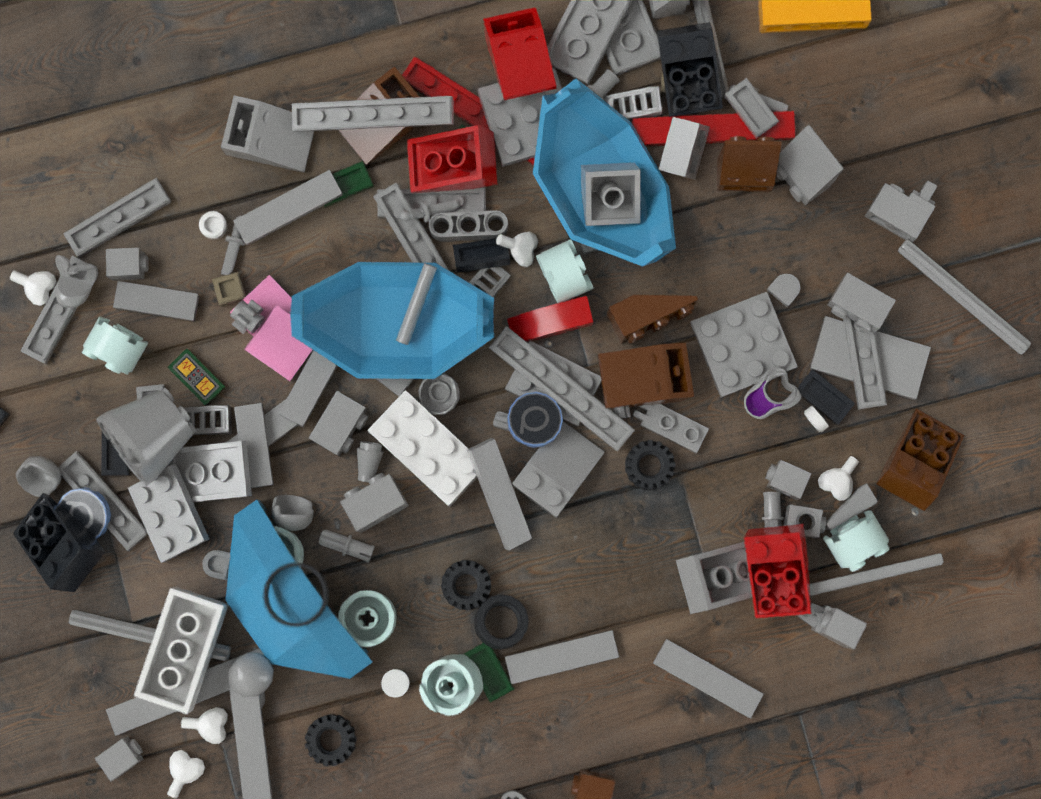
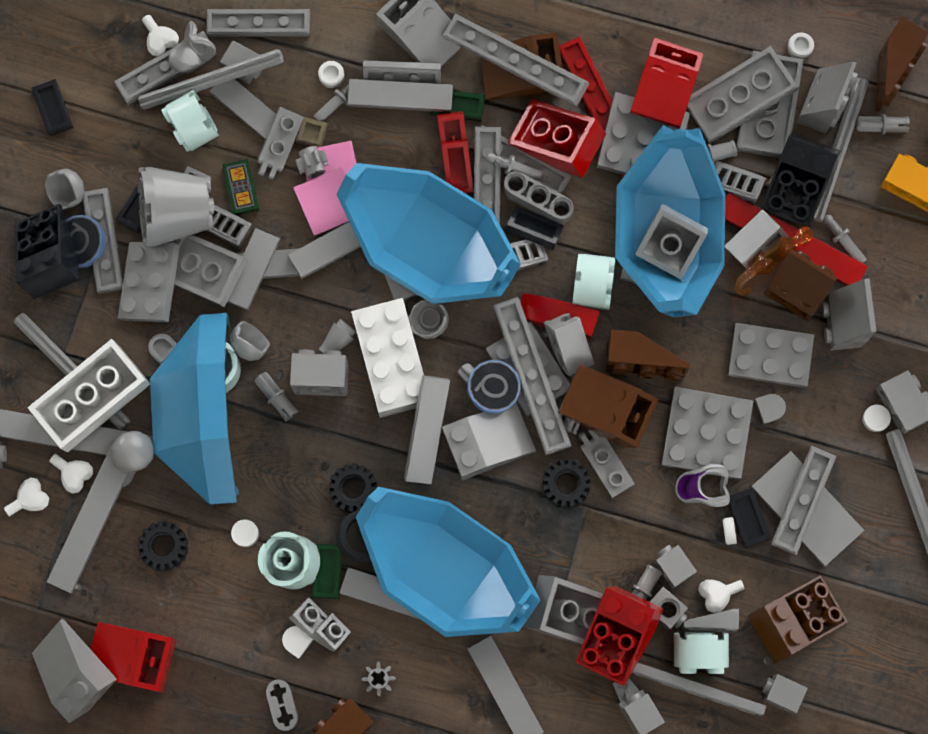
camera: 30 degrees right, 5 degrees down
(108, 296) = (211, 79): none -> light grey axle
(205, 315) = (279, 142): none -> light grey hinge
(266, 594) = (195, 377): black tyre -> none
(276, 185) = (402, 71): none -> light grey tile
(339, 424) = (331, 294): light grey brick -> none
(368, 228) = (455, 150): none -> red slope
(380, 608) = (271, 464): light aqua brick -> none
(416, 304) = (455, 234): light grey piece -> none
(500, 748) = (296, 641): none -> white tile
(512, 724) = (316, 624): none -> light grey slope
(520, 246) = (571, 241): white rock -> none
(577, 340) = (569, 343): none -> light grey hinge
(588, 730) = (370, 679): none -> light grey gear
(592, 604) = (444, 565): none -> dark azure panel
(704, 161) = (766, 261): none -> clear orange piece
(751, 108) = (833, 241): light grey tile -> none
(756, 241) = (770, 355): none -> light grey plate
(860, 303) = (825, 455): light grey brick -> none
(881, 241) = (876, 418): none -> white tile
(948, 532) = (784, 693): none -> light grey brick

